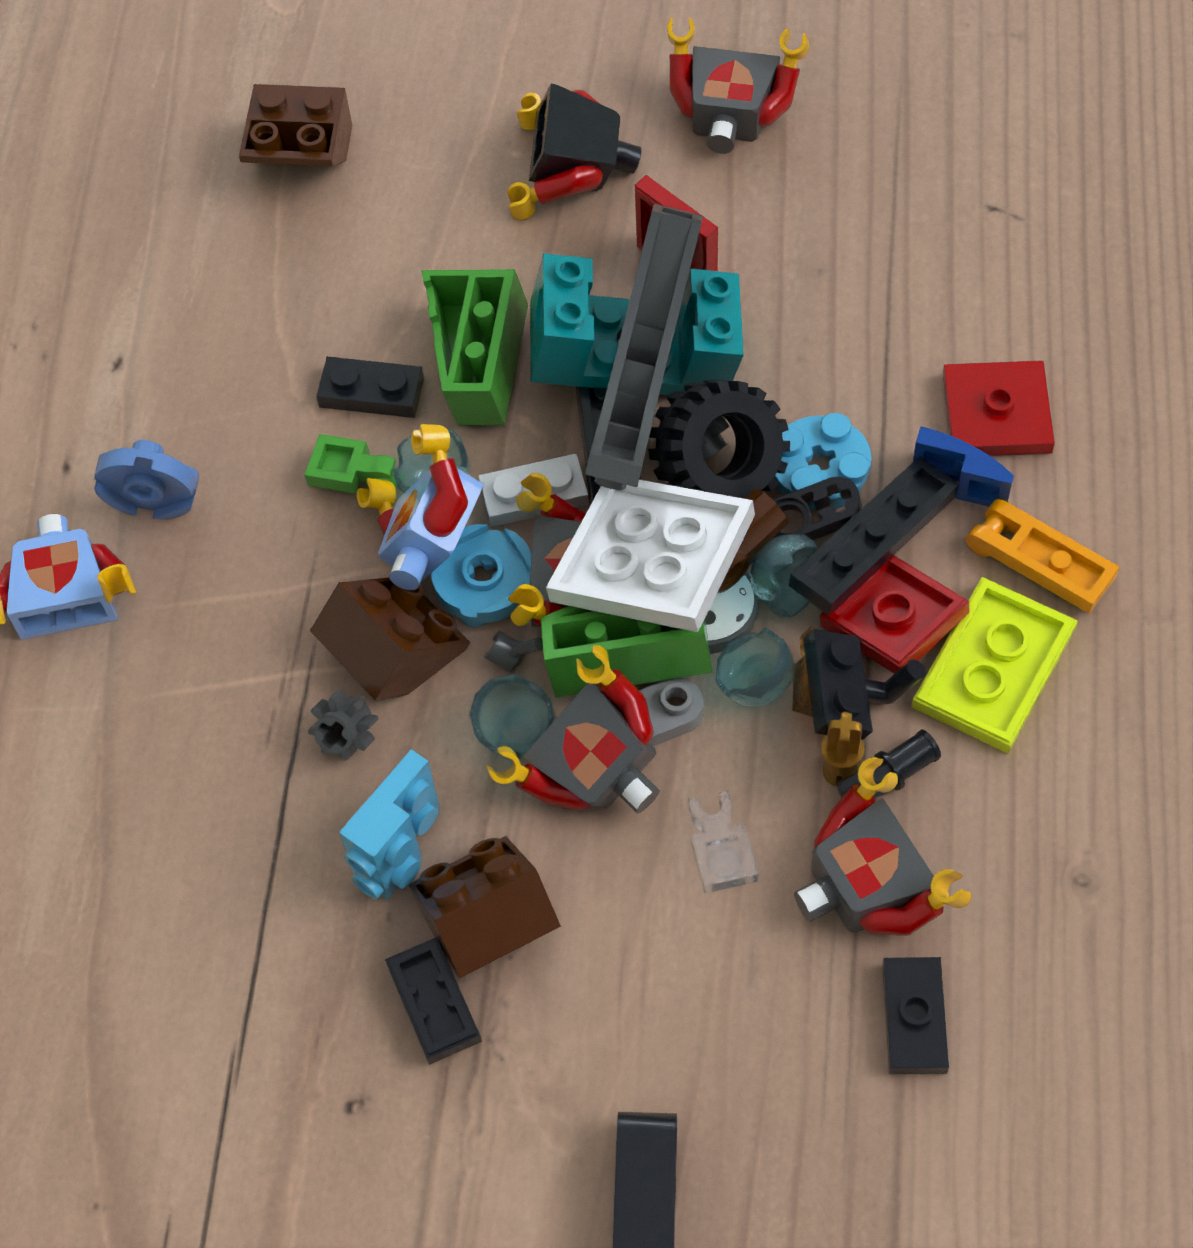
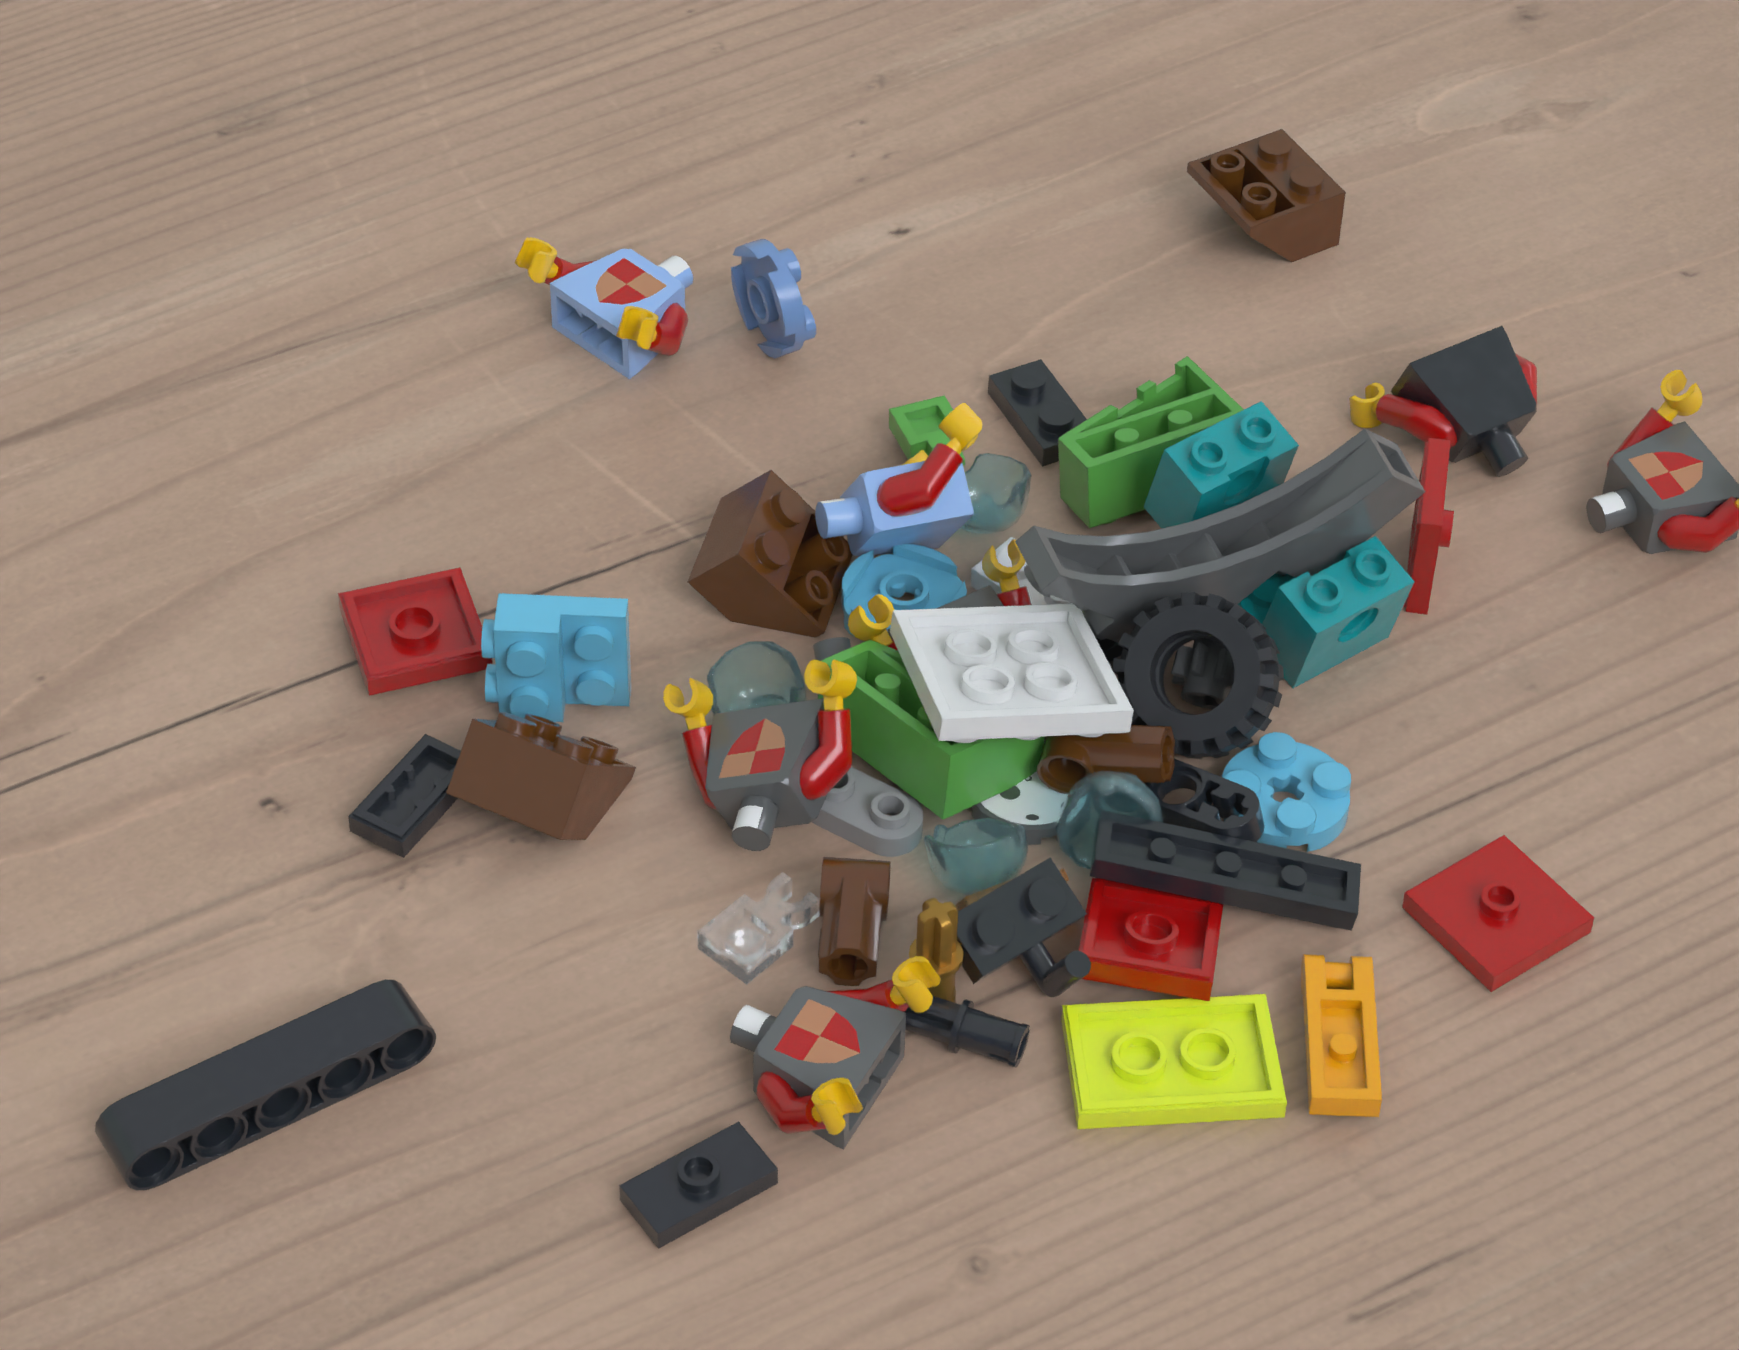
camera: 50 degrees right, 15 degrees down
(269, 908) = (414, 630): none -> red plate
(342, 724) = (644, 575): dark grey gear -> none
(741, 767) = (852, 908): none -> reddish brown piece
(979, 475) = (1380, 907): blue slope -> none

